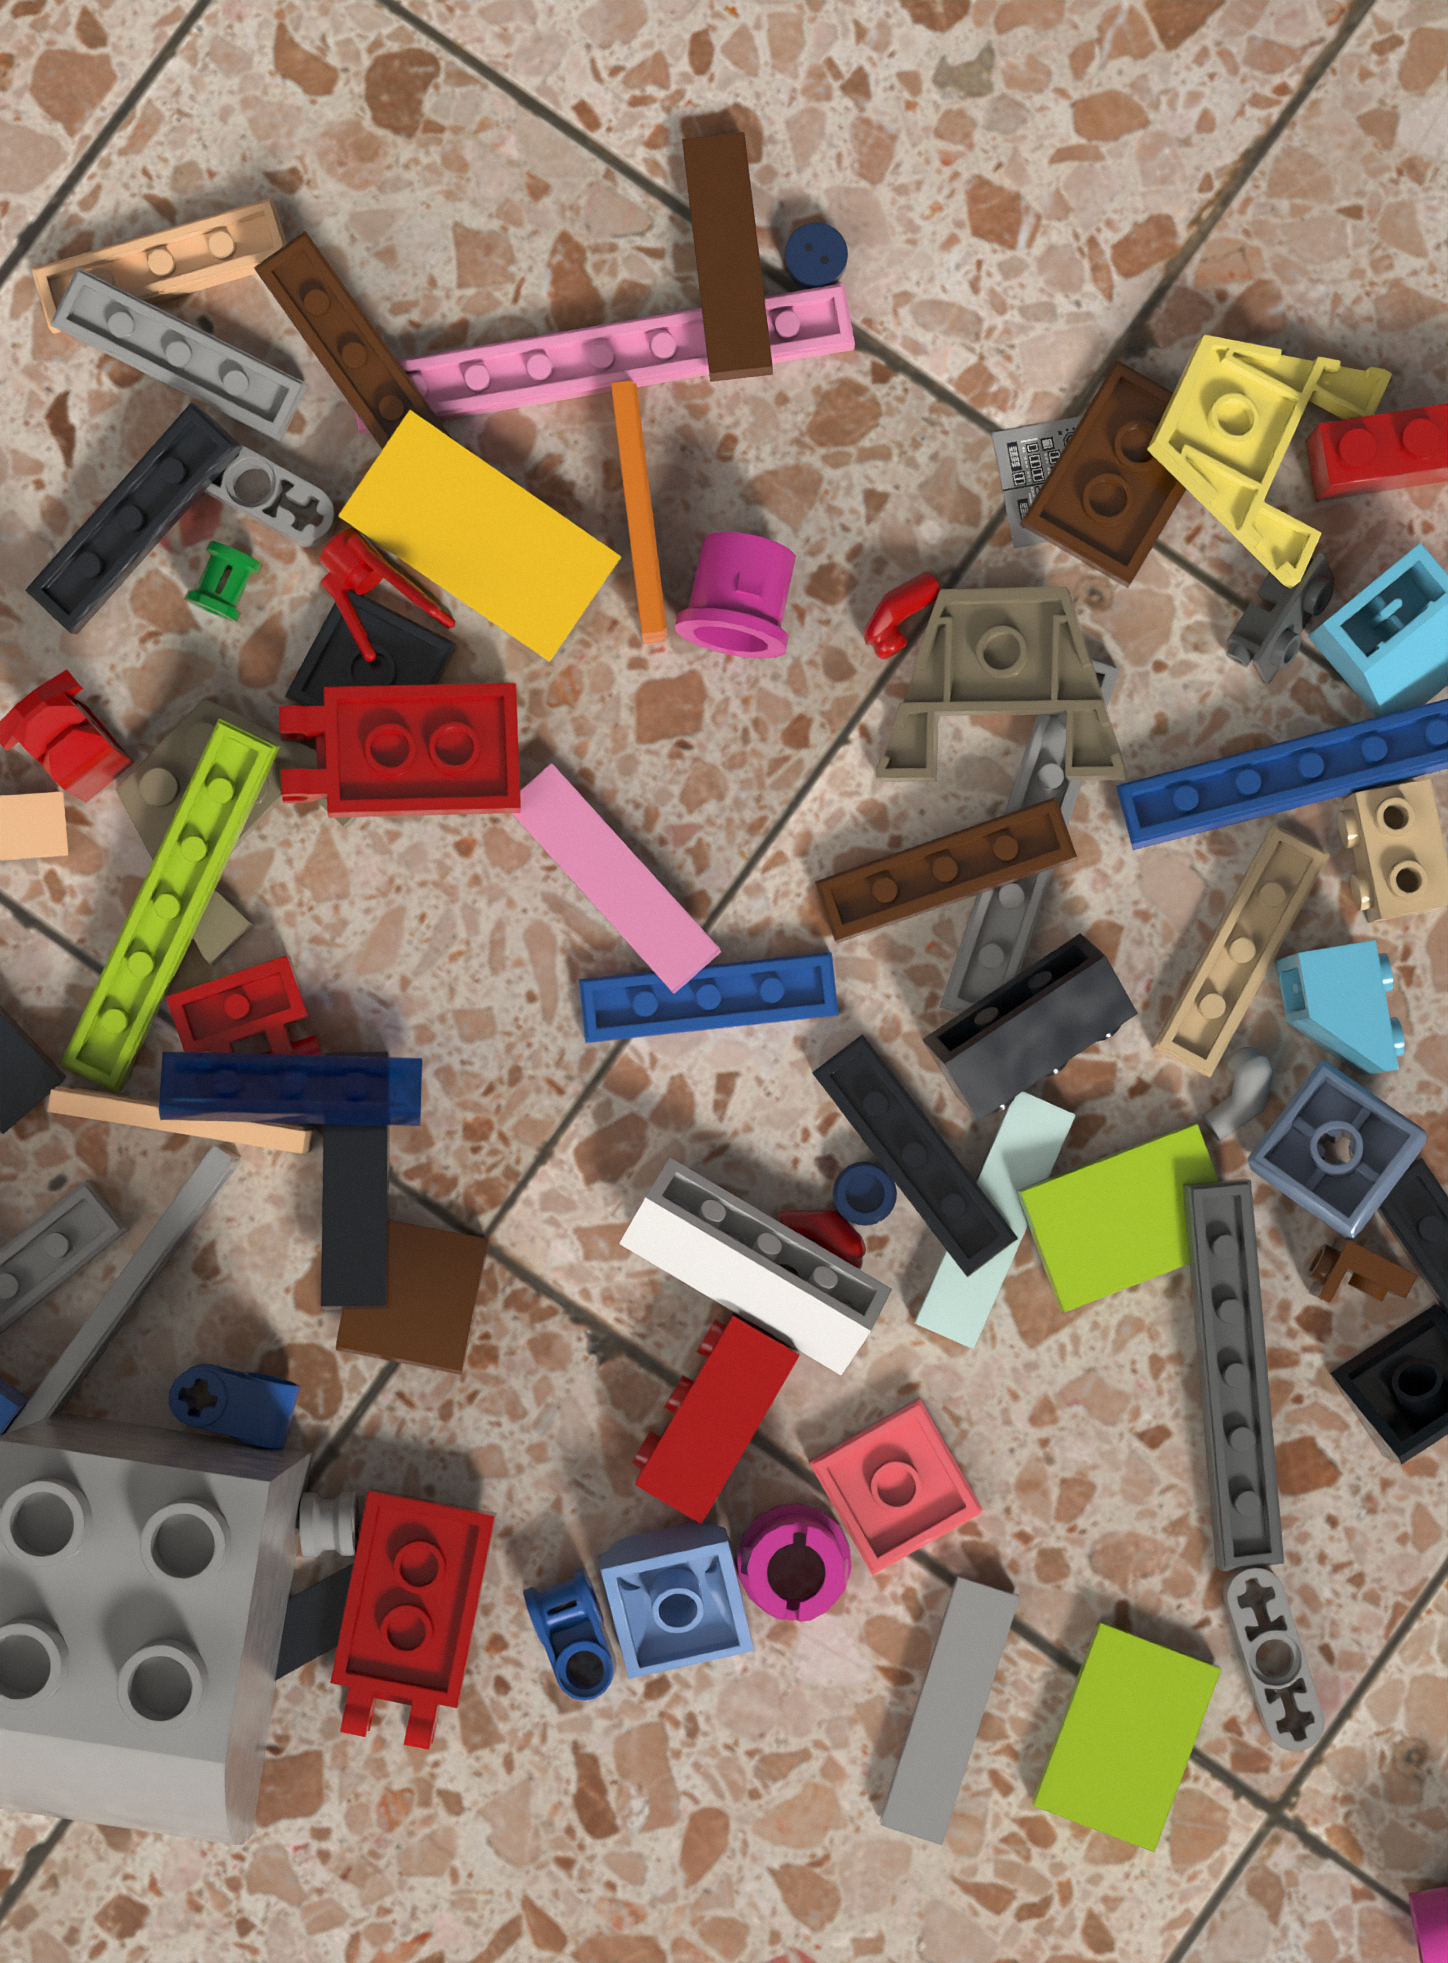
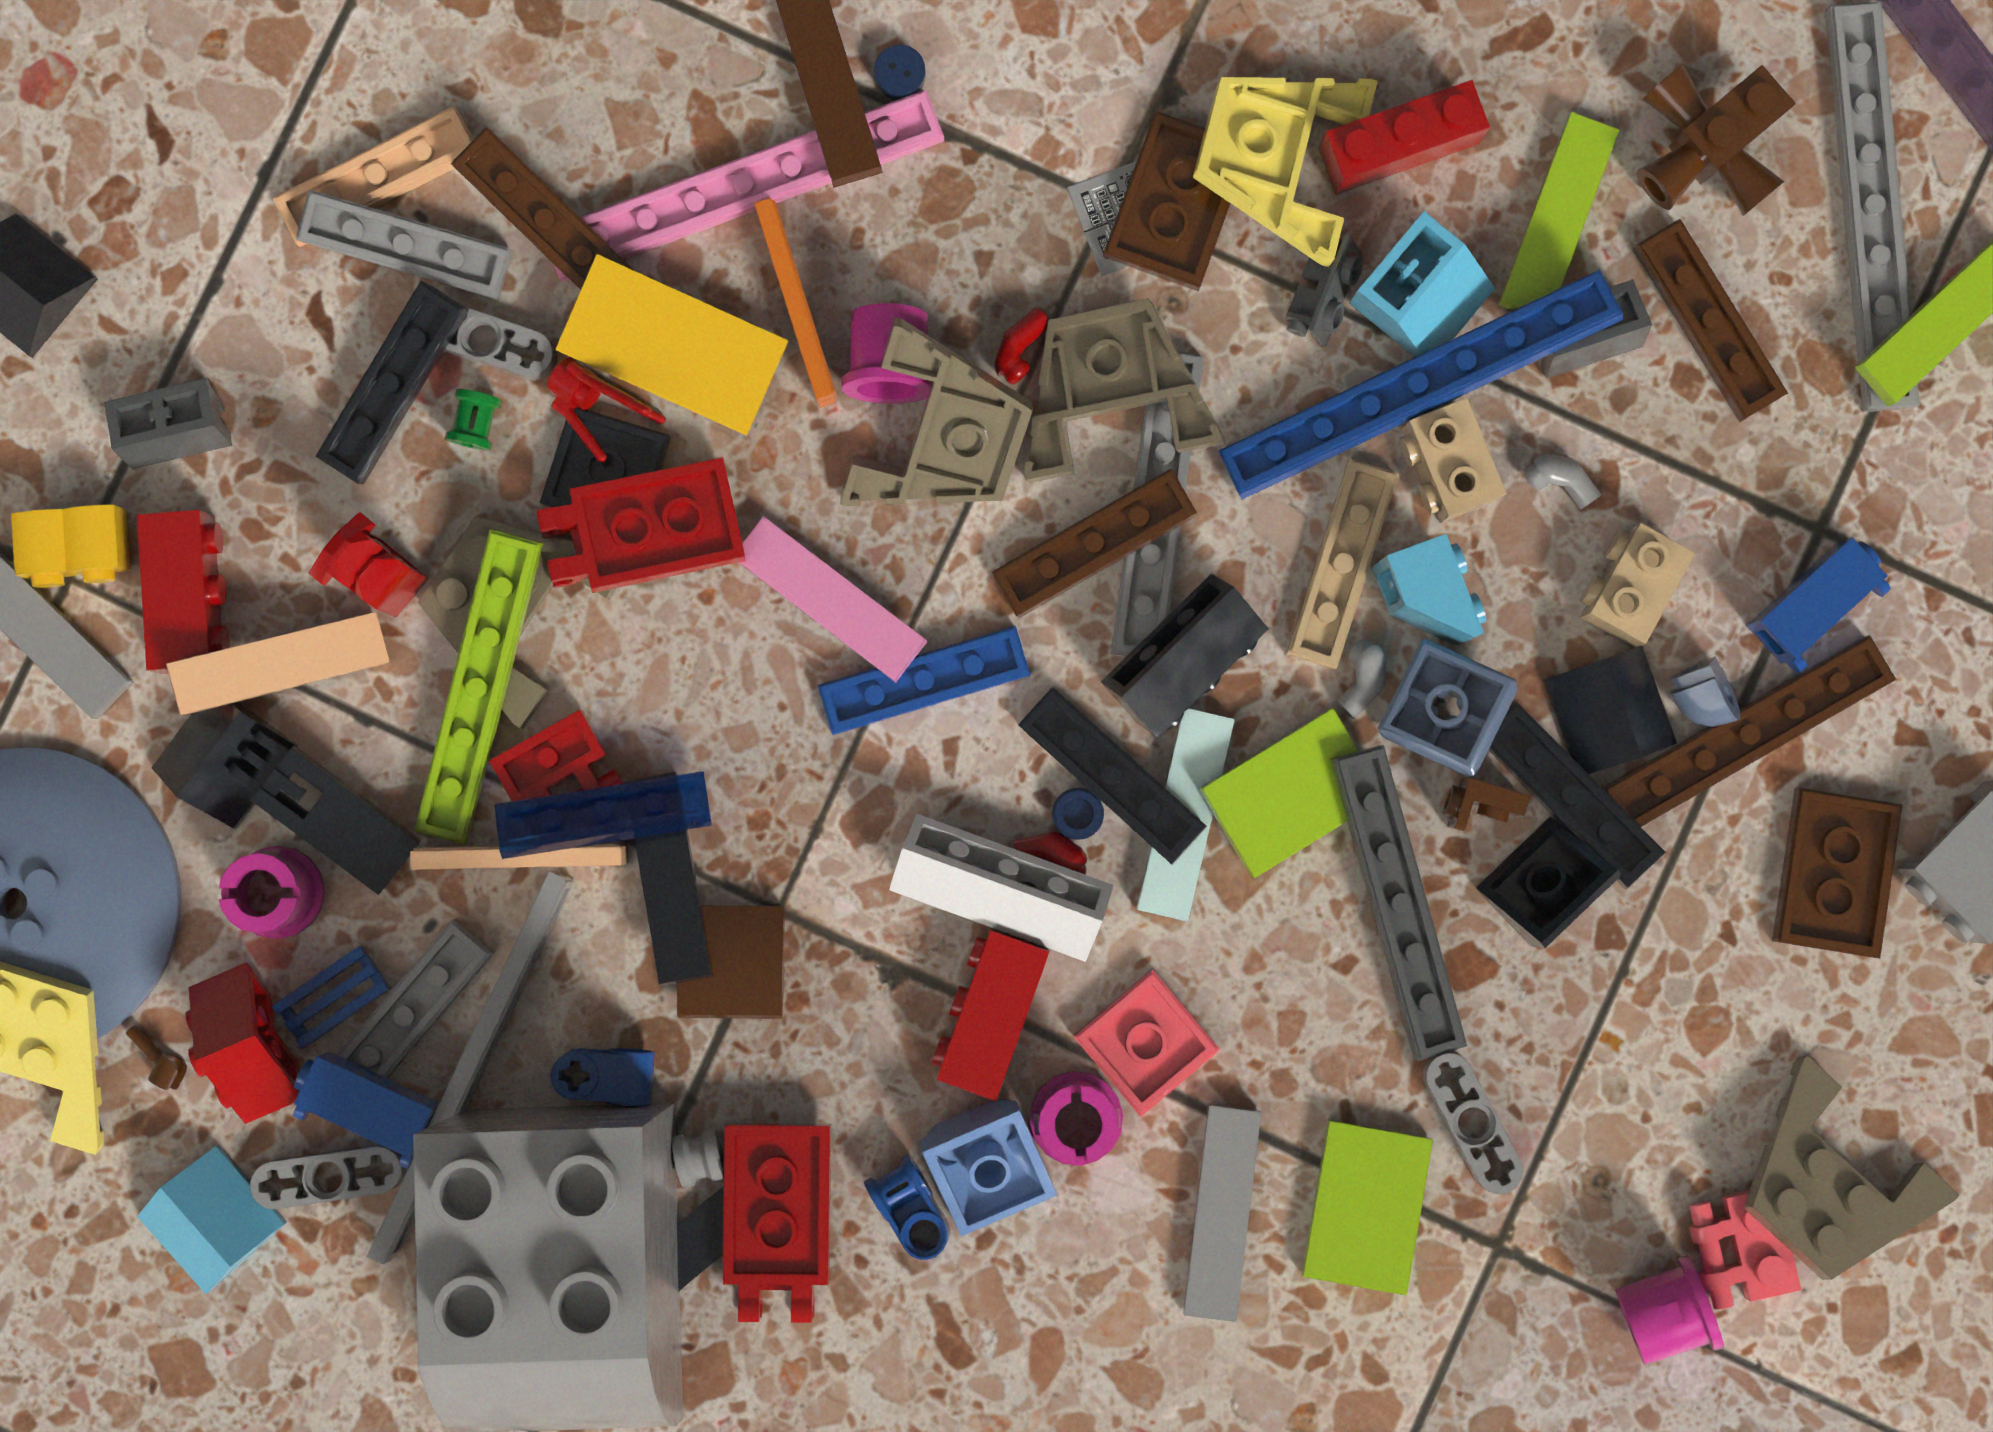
camera: 10 degrees left, 0 degrees up
(811, 712) = (963, 437): none -> dark tan wing

